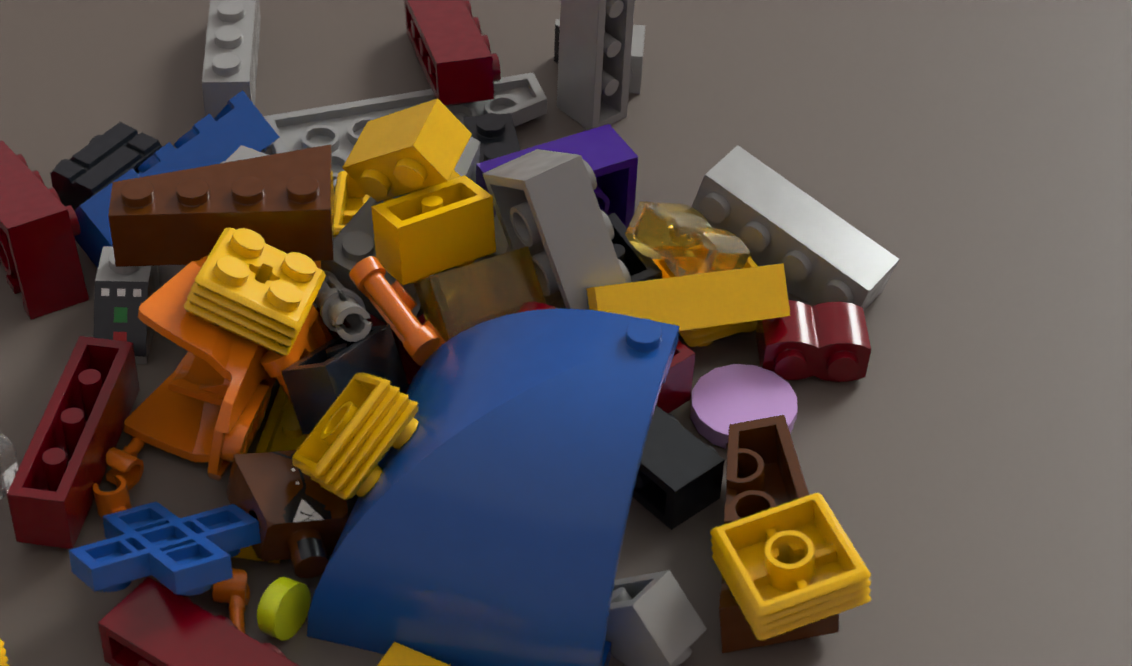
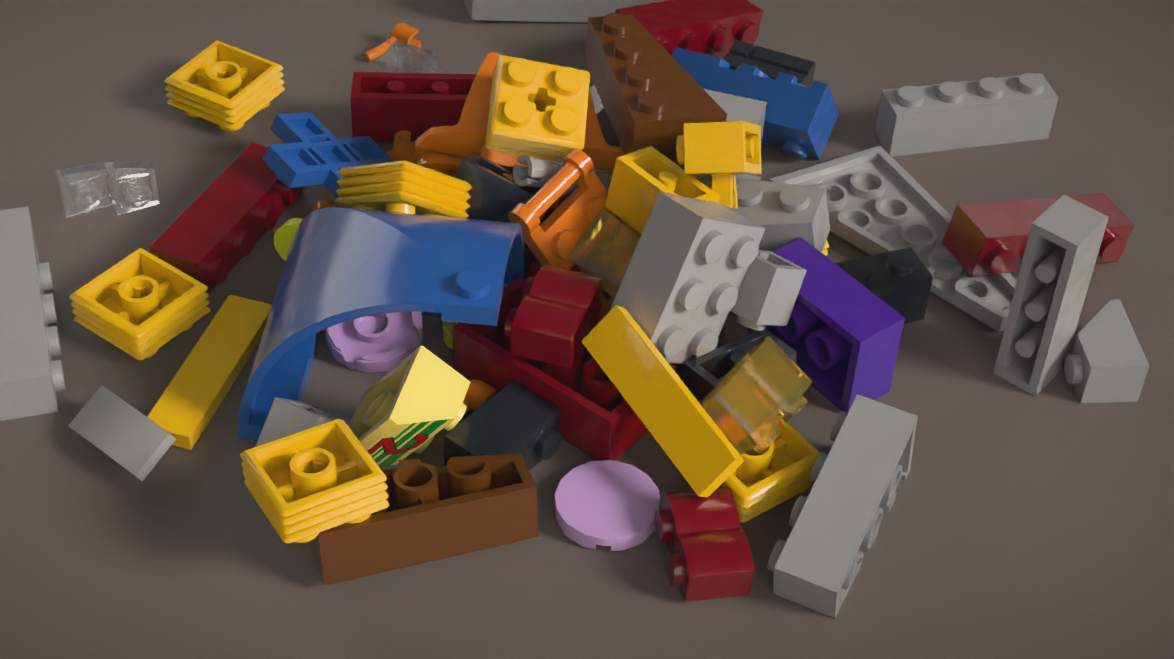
camera: 80 degrees right, 0 degrees up
(671, 519) = (409, 407): none -> light yellow slope

